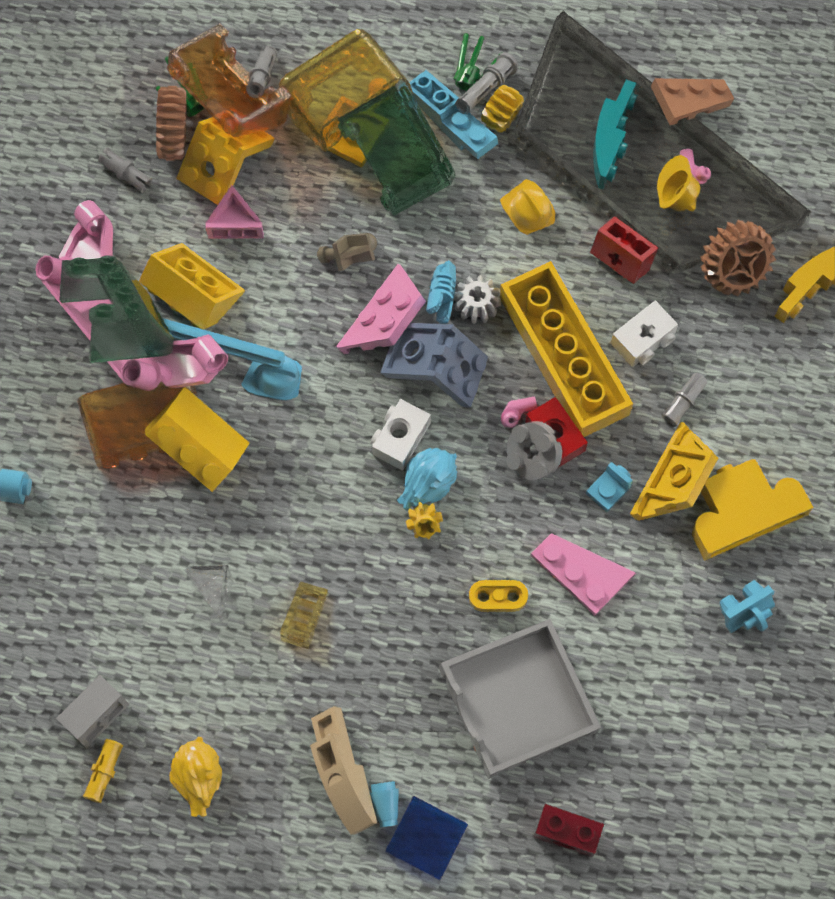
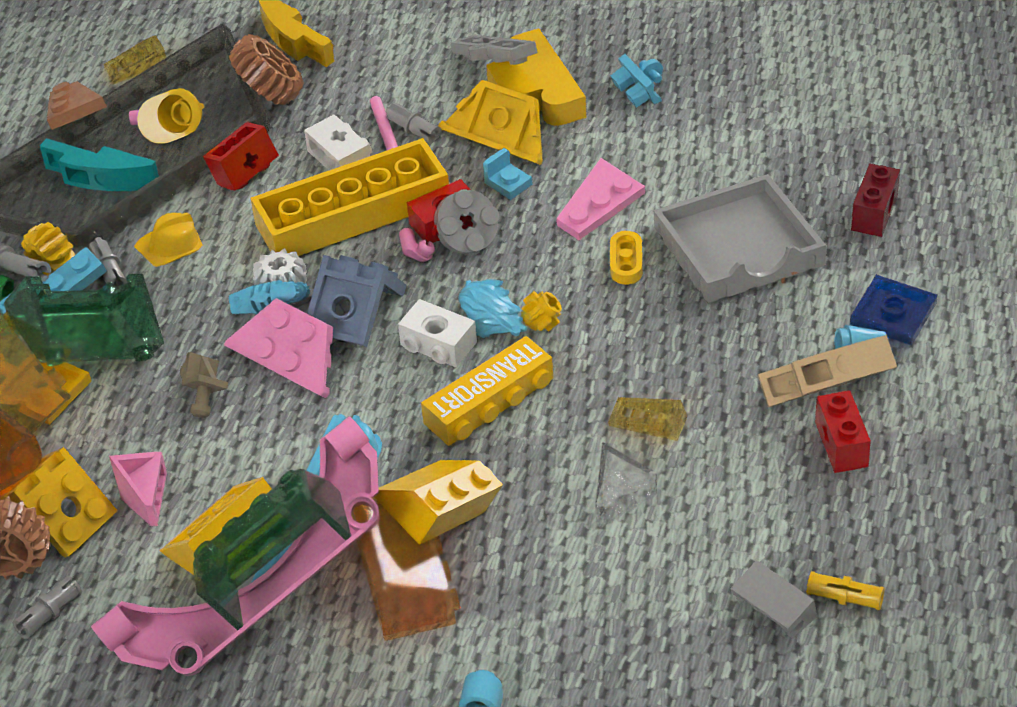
camera: 85 degrees left, 25 degrees down
(196, 774) = (845, 495): yellow hair -> none
(269, 778) = (842, 431): none -> red brick
(331, 479) = (487, 391): none -> yellow brick
(495, 159) = (110, 261): none -> light grey axle
(680, 376) = (383, 123): none -> bright pink bar
(774, 165) = (141, 56): none -> clear yellow slope
(774, 462) = (497, 48): none -> light grey hinge

